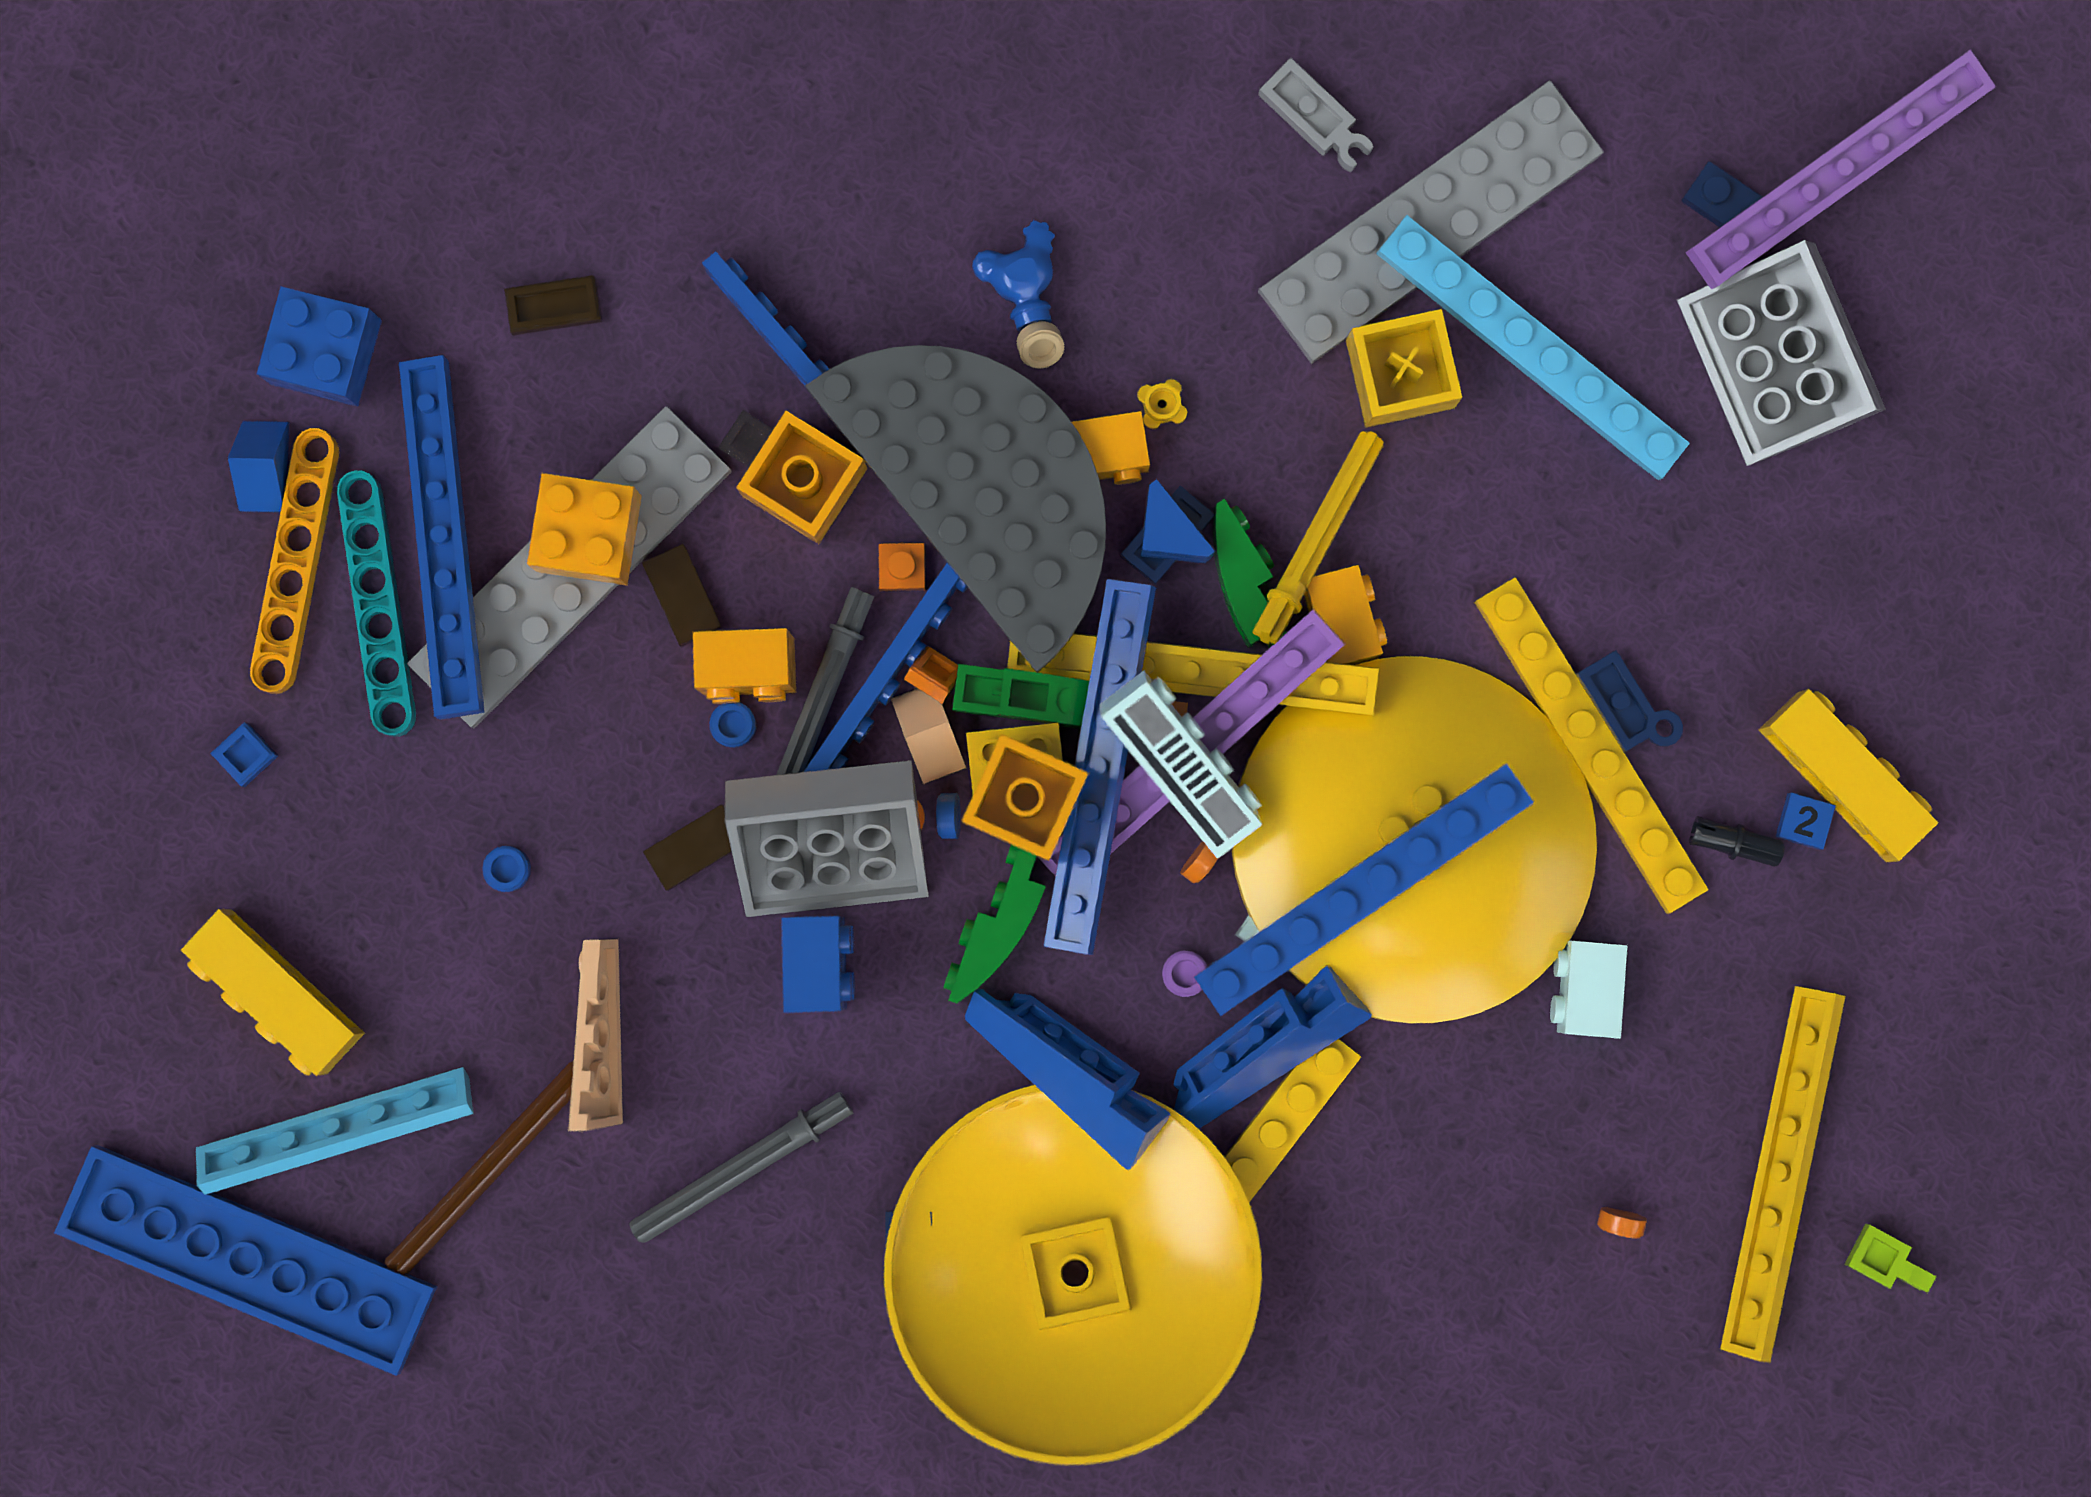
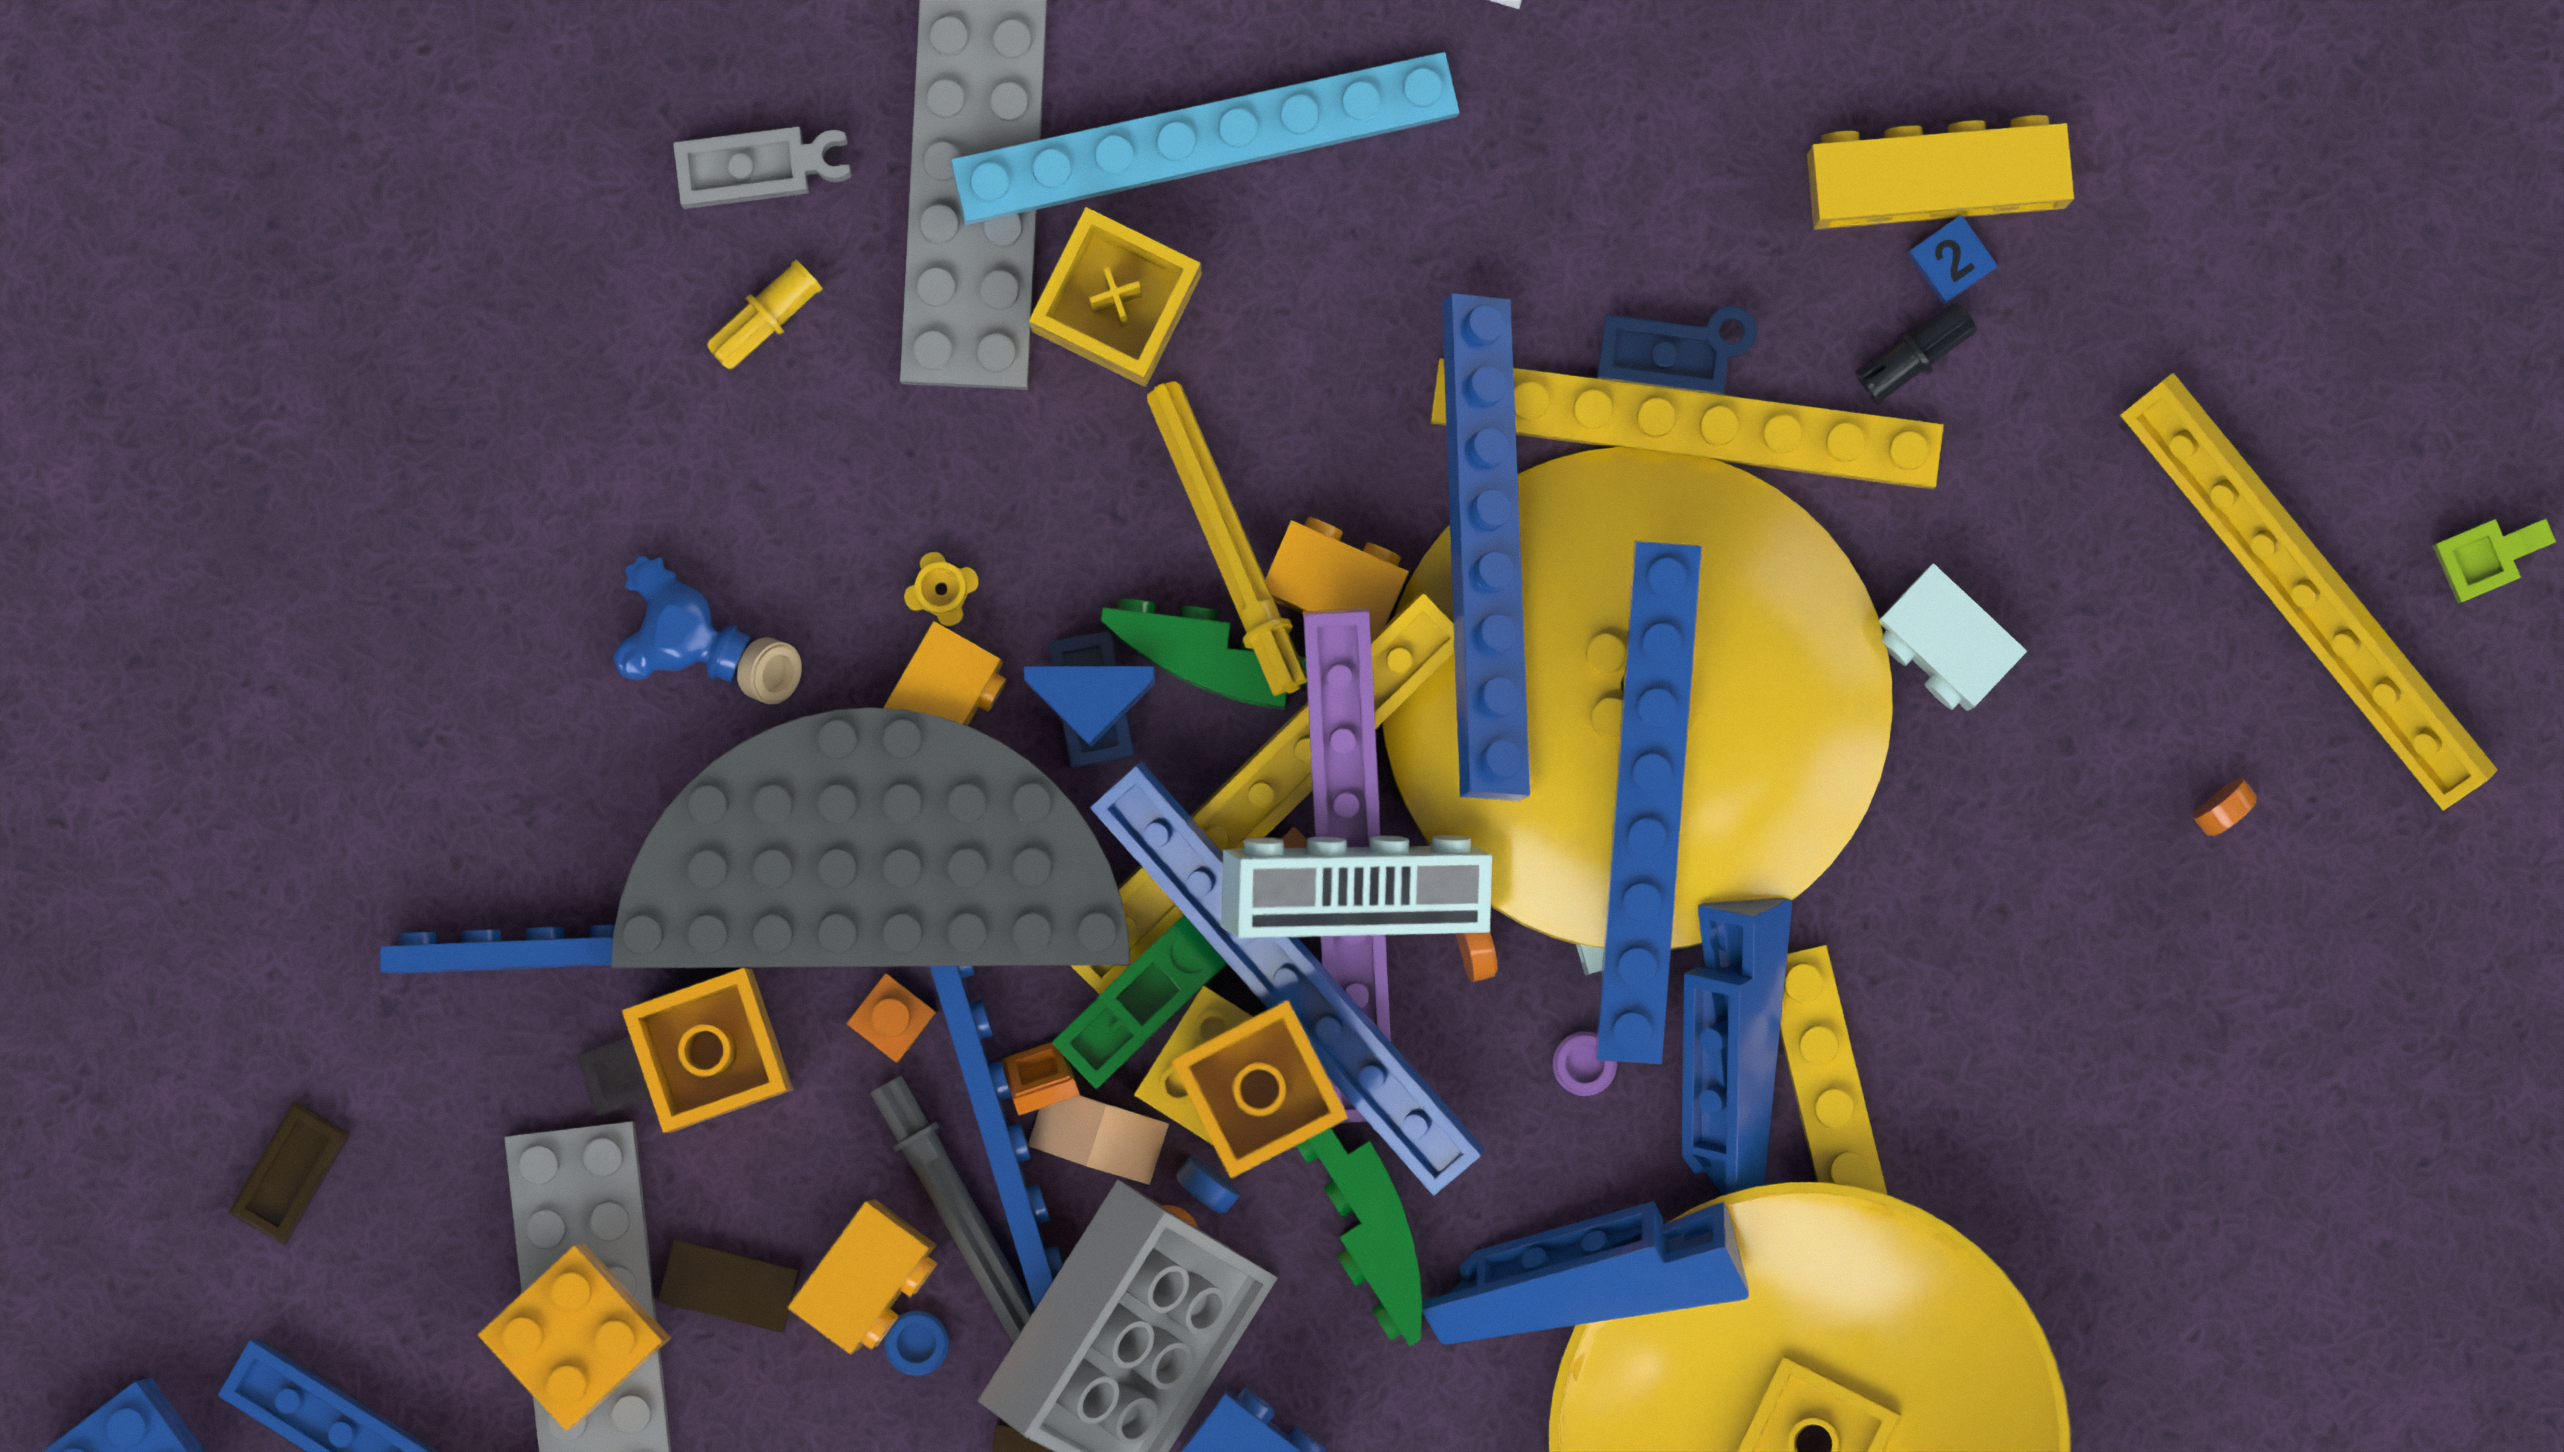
camera: 50 degrees left, 0 degrees up
(1234, 185) = (763, 315): none -> yellow axle
(1430, 685) = (1485, 548): none -> blue plate

